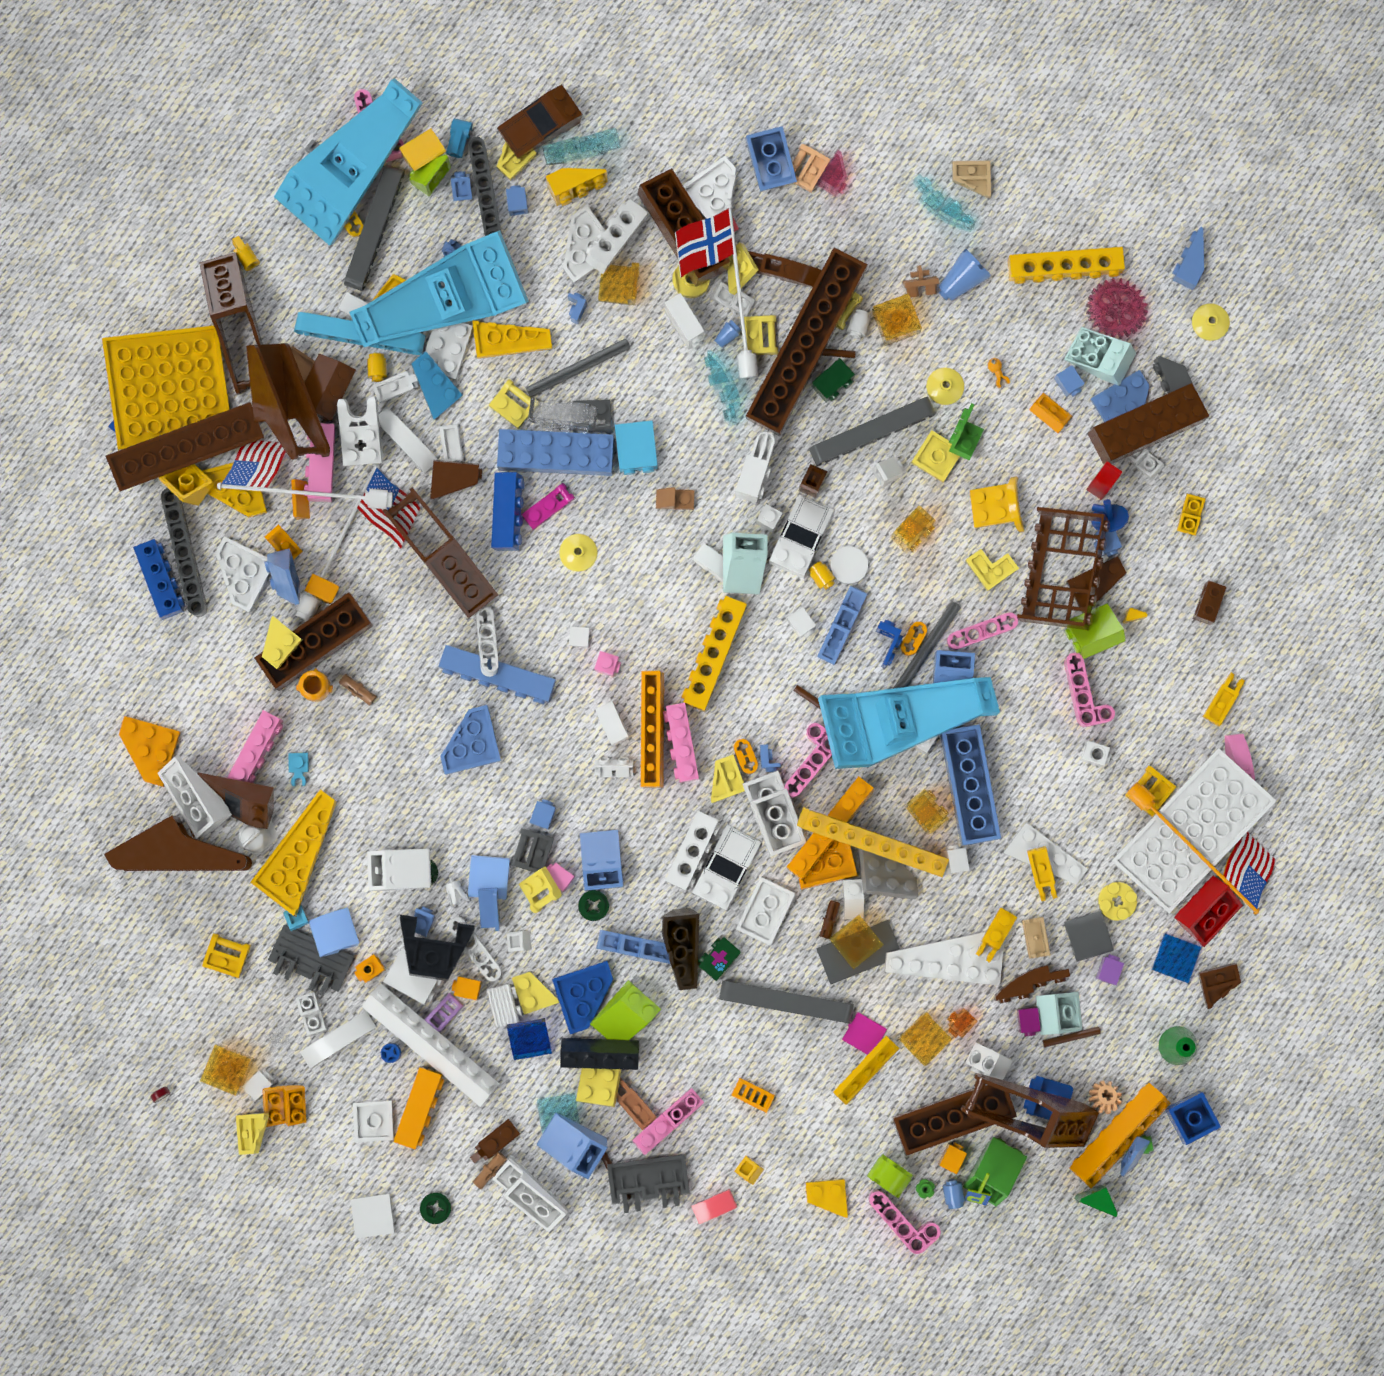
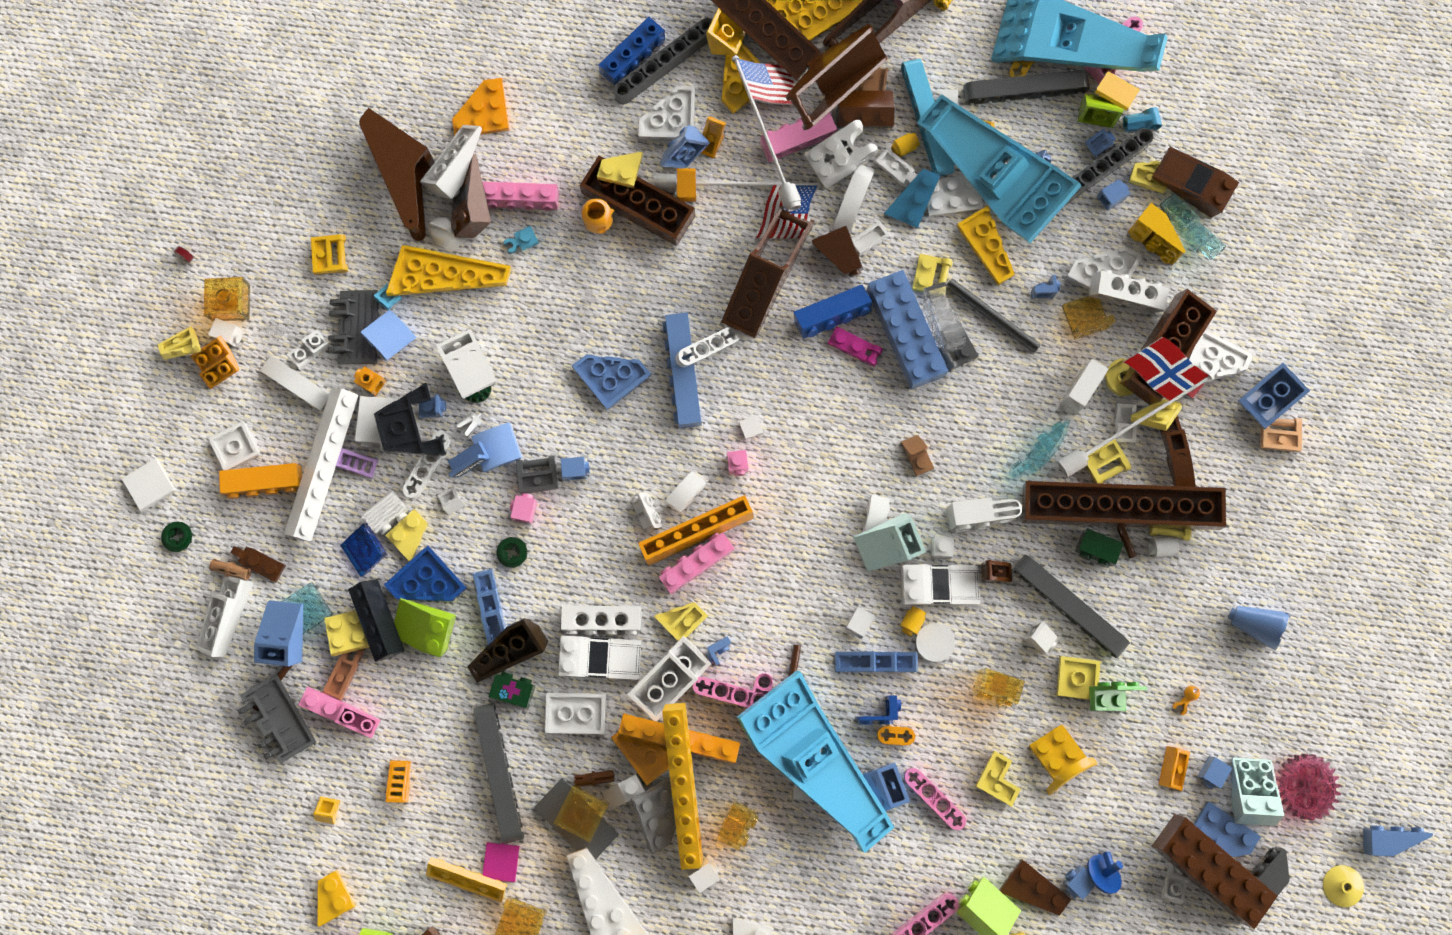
camera: 65 degrees right, 5 degrees down
(300, 502) = (752, 136): light orange slope -> none
(357, 689) = (613, 258): medium nougat pin -> none
(388, 1055) = (297, 431): blue wheel -> none
(466, 988) = (387, 473): light orange brick -> none
(535, 885) = (507, 491): light yellow plate -> none
(578, 562) = (823, 400): light yellow dish -> none
(601, 860) = (555, 540): medium blue slope -> none
(636, 447) = (947, 398): medium azure brick -> none
(714, 1206) = (278, 793): coral slope -> none
(727, 334) = (1092, 432): medium blue cone -> none
(736, 609) = (842, 546): yellow brick -> none
(741, 758) = (708, 625): light orange beam -> none
(834, 176) = (1287, 461): clear pink slope -> none
(896, 319) = (1186, 580): clear yellow brick -> none
(928, 645) = (896, 752): dark grey axle -> none
(929, 282) = (1235, 596): medium nougat hips -> none
(943, 395) = (1139, 660): light yellow dish -> none
(947, 211) = (1311, 581): clear light blue slope -> none
(970, 785) = (781, 856): medium blue brick -> none
(973, 176) = (1358, 590): tan wing -> none
(1036, 567) = (1022, 823): reddish brown window -> none
(1104, 480) = (1139, 852): red slope -> none
(1113, 256) = (1355, 757): yellow brick -> none

